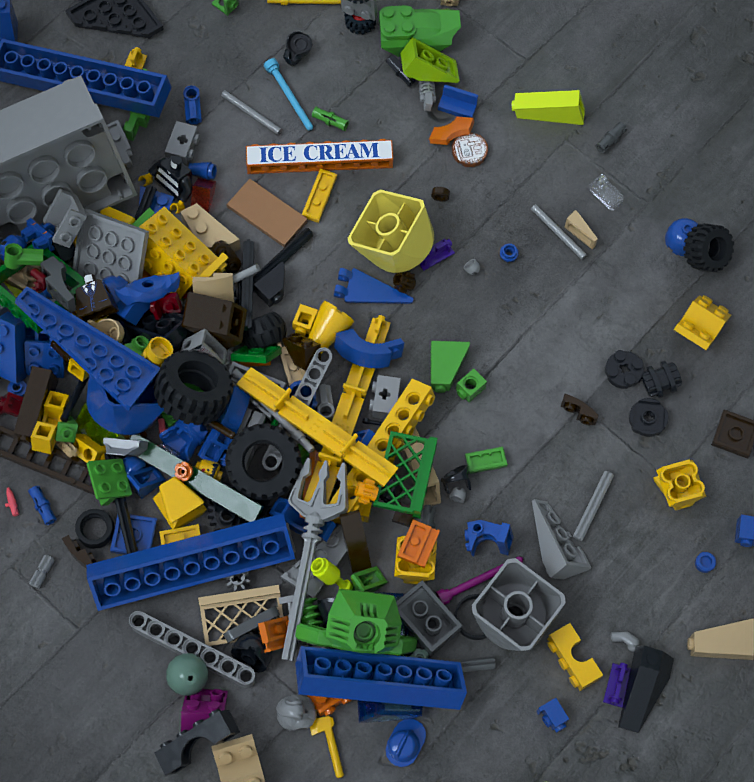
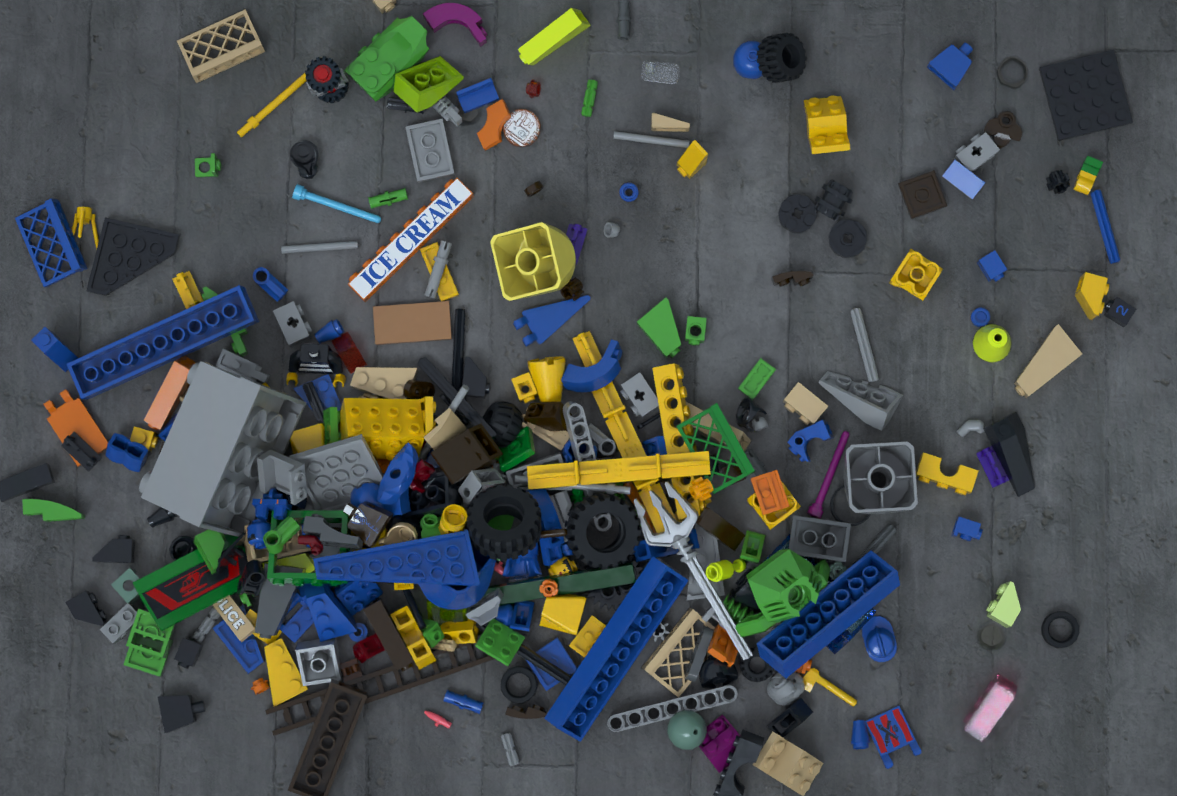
camera: 35 degrees left, 15 degrees up
(277, 740) = (790, 718): none -> black slope
(278, 681) = (751, 675): none -> black tyre
(321, 188) = (438, 269): none -> light grey pin
(389, 111) = (430, 150): none -> light grey plate
(492, 40) = (456, 13): none -> magenta arch
(502, 130) = (533, 89): none -> clear red plate
(507, 506) = (804, 404): none -> tan brick
(538, 168) = (589, 98): none -> bright green axle
(577, 263) = (692, 160): none -> yellow slope
(699, 588) = (987, 347): none -> neon yellow cone

